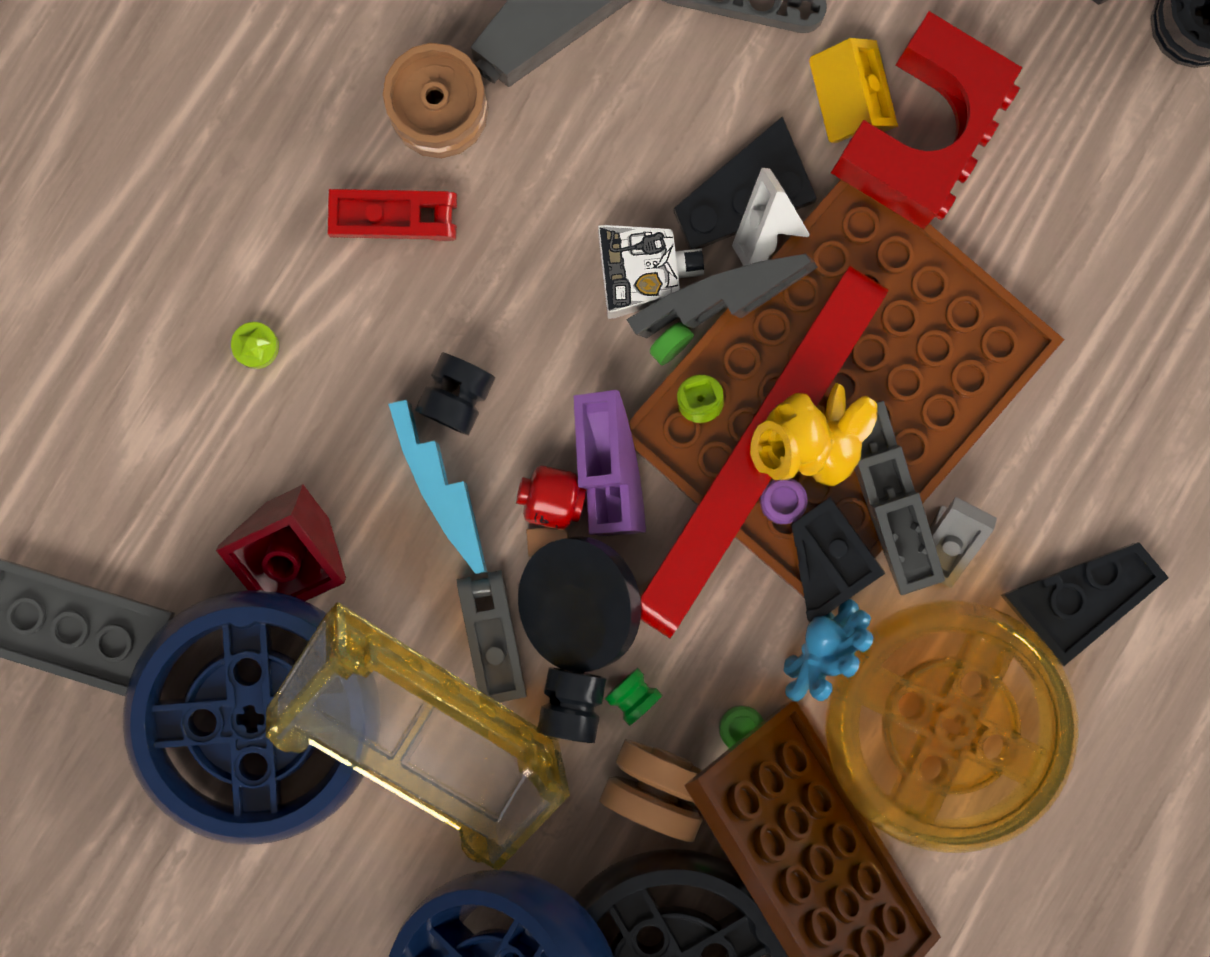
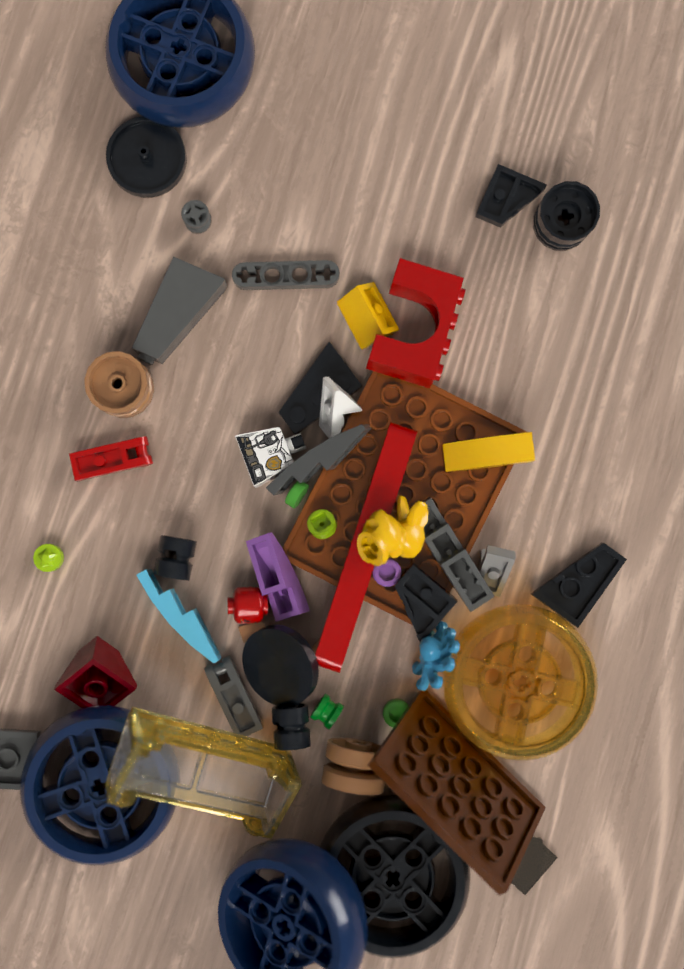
camera: 15 degrees left, 0 degrees up
(994, 352) = (489, 452): none -> yellow slope

